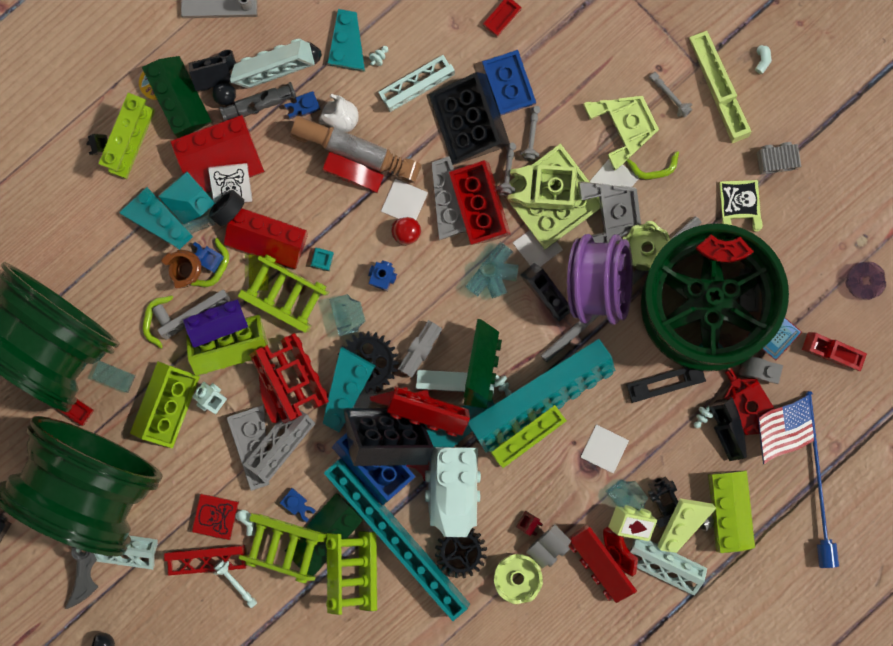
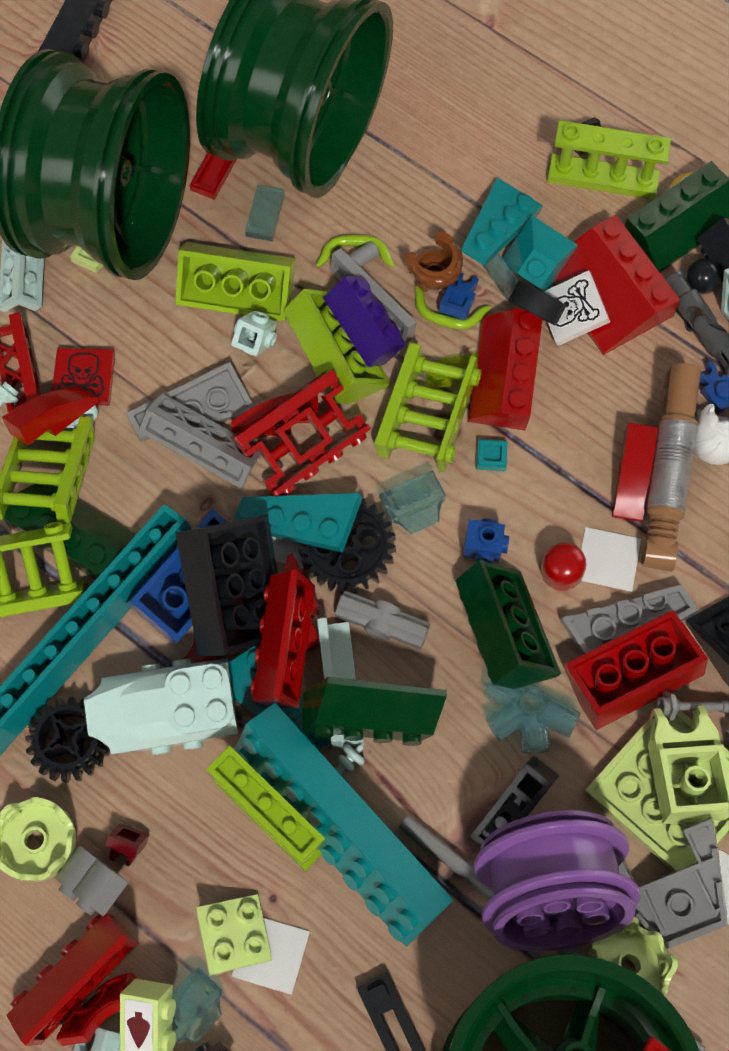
camera: 80 degrees right, 15 degrees down
(245, 539) = (48, 413): none -> red slope
(295, 503) = (115, 483): blue plate -> none
(439, 274) = (506, 626): none -> dark green slope
(533, 251) = (578, 773): white sticker -> none
(591, 468) = (233, 934): none -> yellowish green hinge

